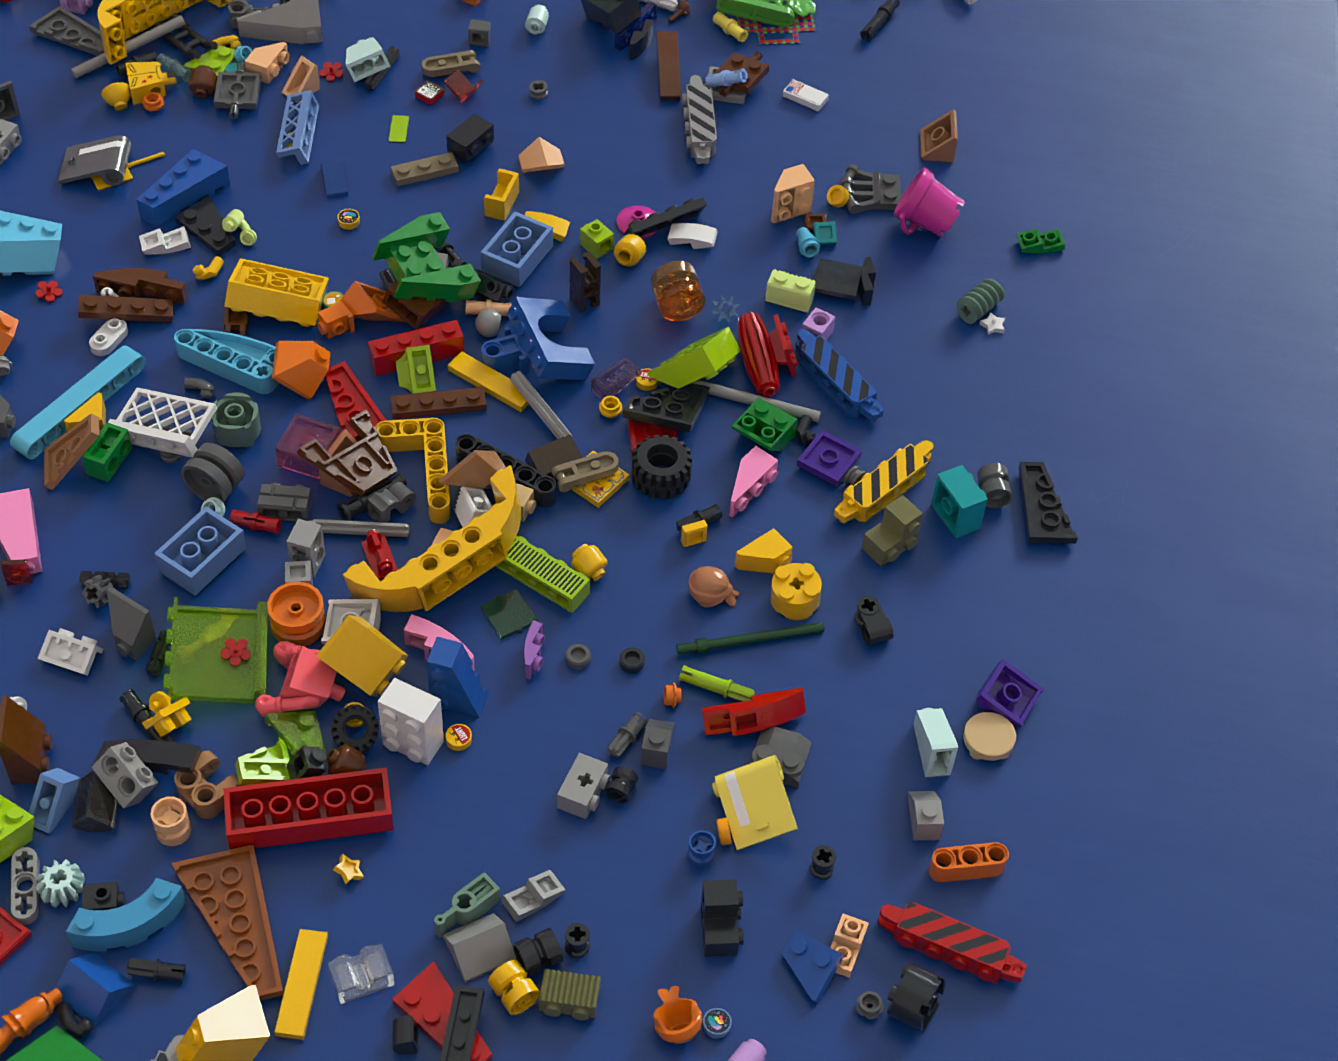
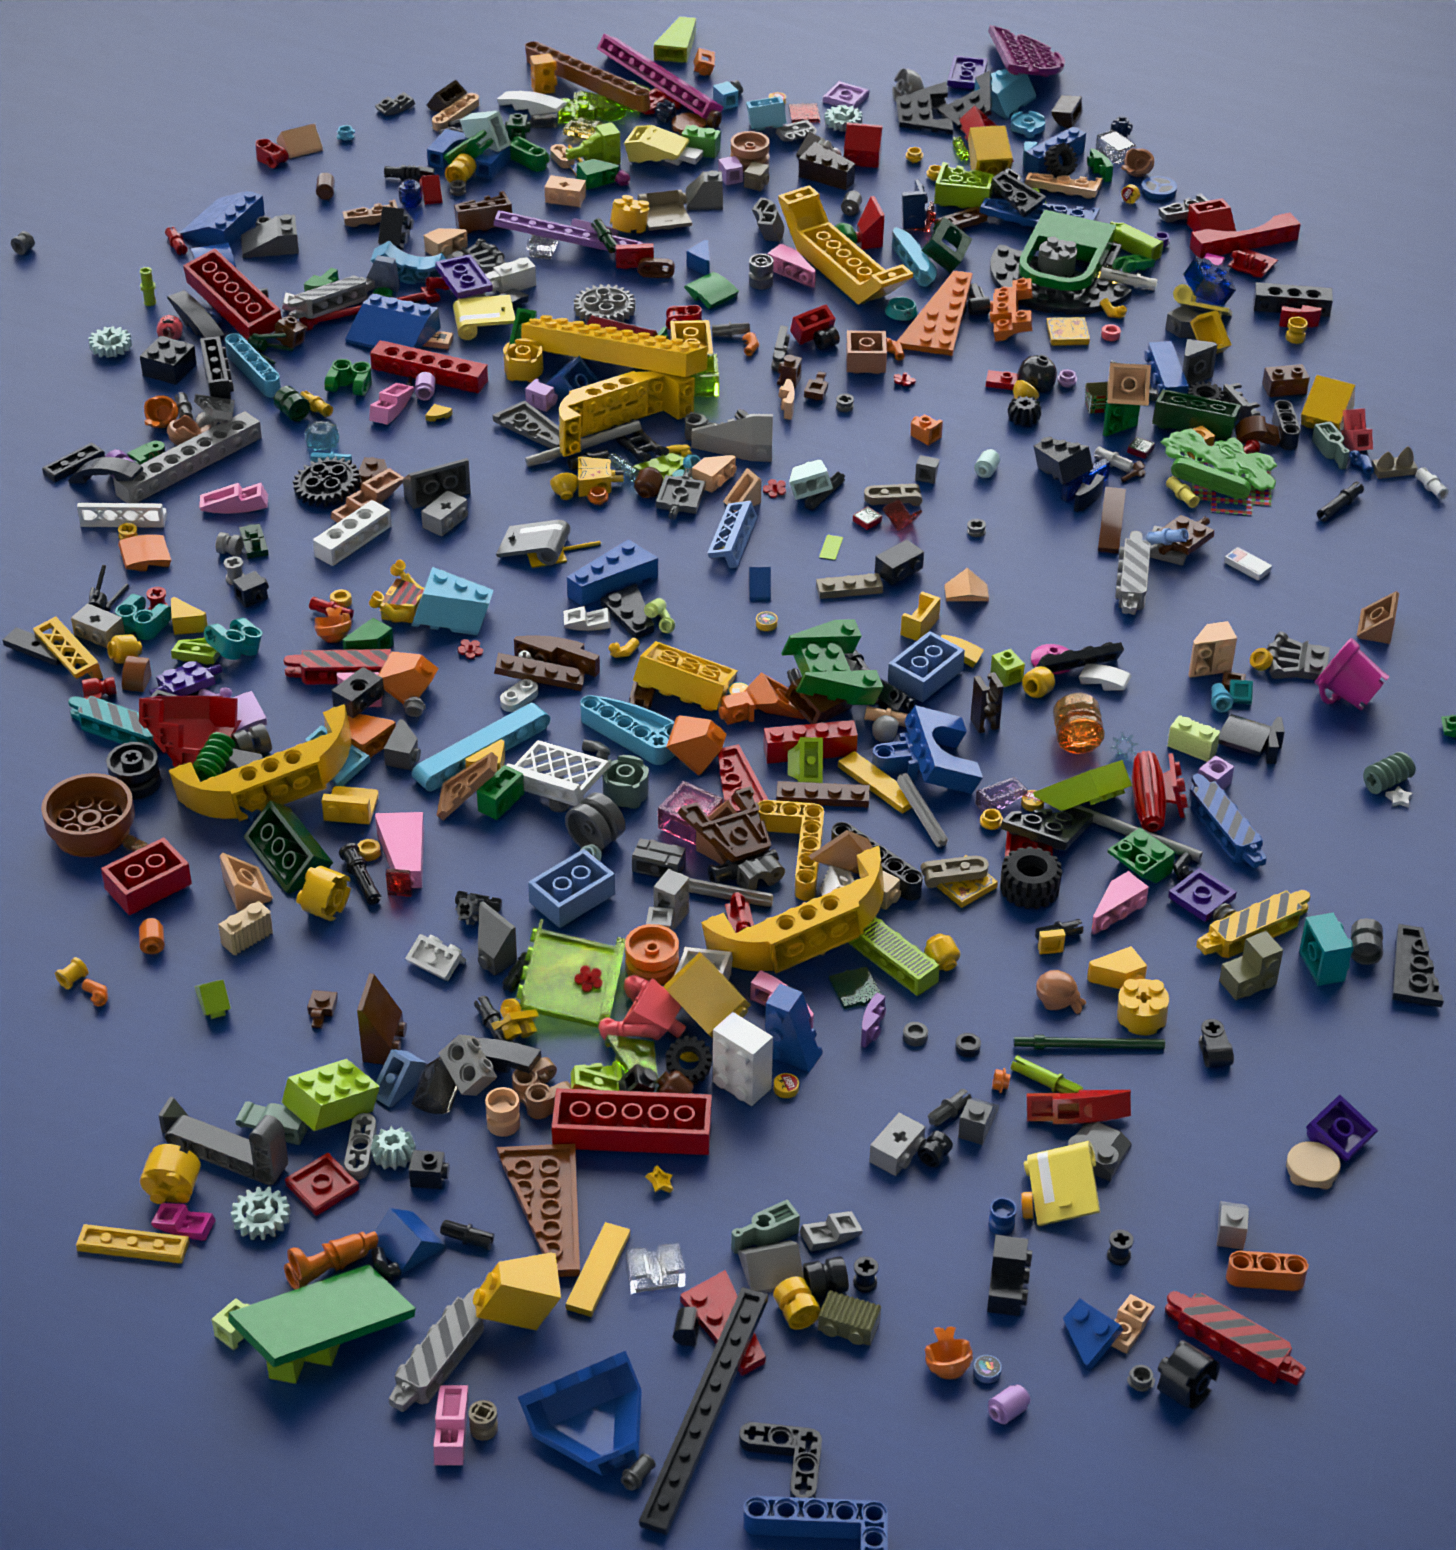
camera: 15 degrees right, 10 degrees down
(129, 923) = (448, 1190): dark azure brick -> none
(255, 521) = (629, 872): red pin -> none
(553, 454) = (925, 850): dark brown brick -> none
(935, 742) = (1255, 1160): light aqua slope -> none

